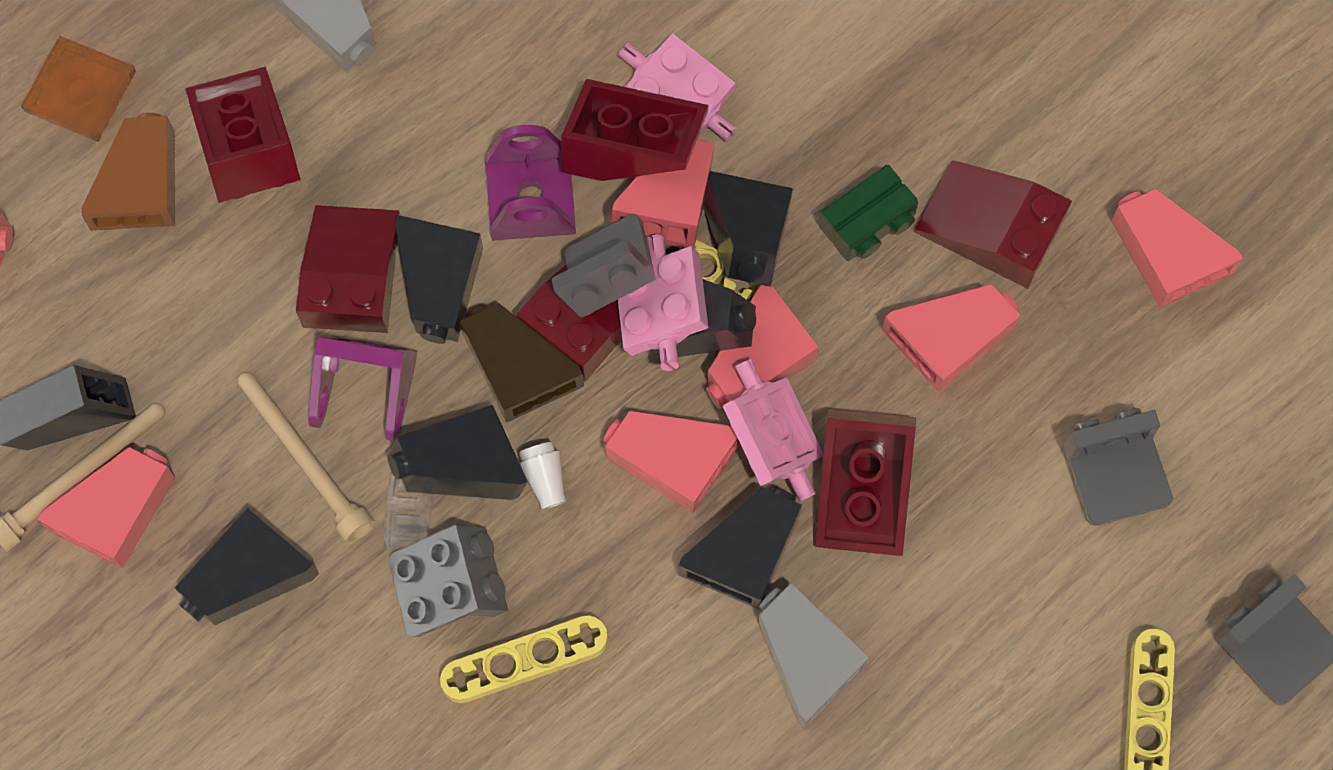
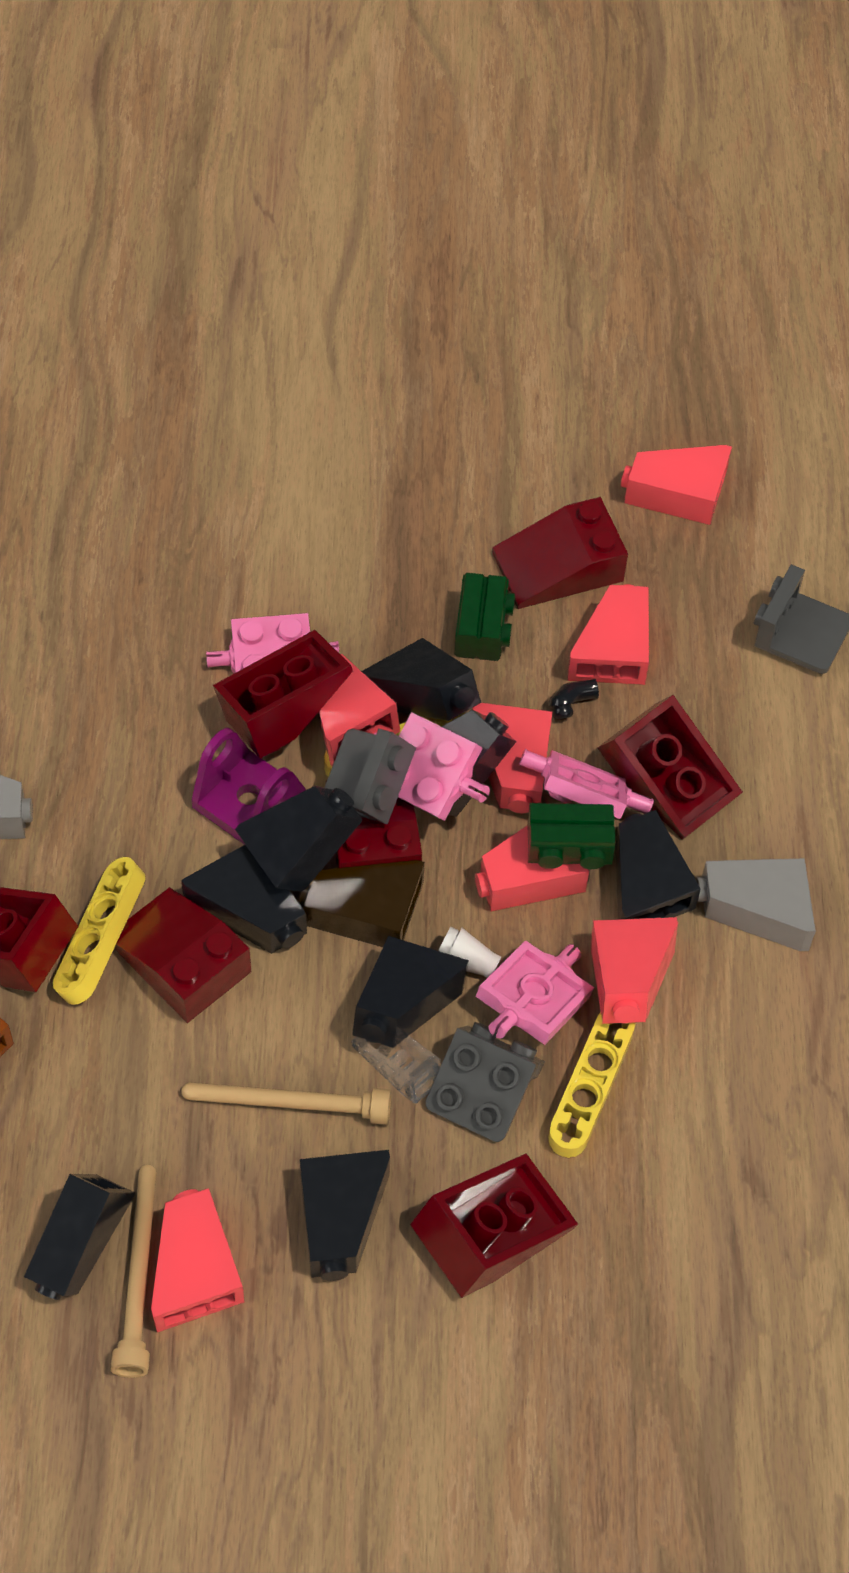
camera: 50 degrees left, 15 degrees down
(255, 218) = (79, 971): none -> light yellow beam
(326, 362) = (302, 973): magenta hose -> none
(334, 689) = (492, 1223): none -> dark red slope
(499, 267) = (300, 835): none -> black slope
(552, 553) = (534, 992): none -> bright pink plate
(642, 605) = (631, 964): none -> coral slope
(702, 461) = (571, 834): none -> dark green brick
(862, 343) = (570, 693): none -> black arm

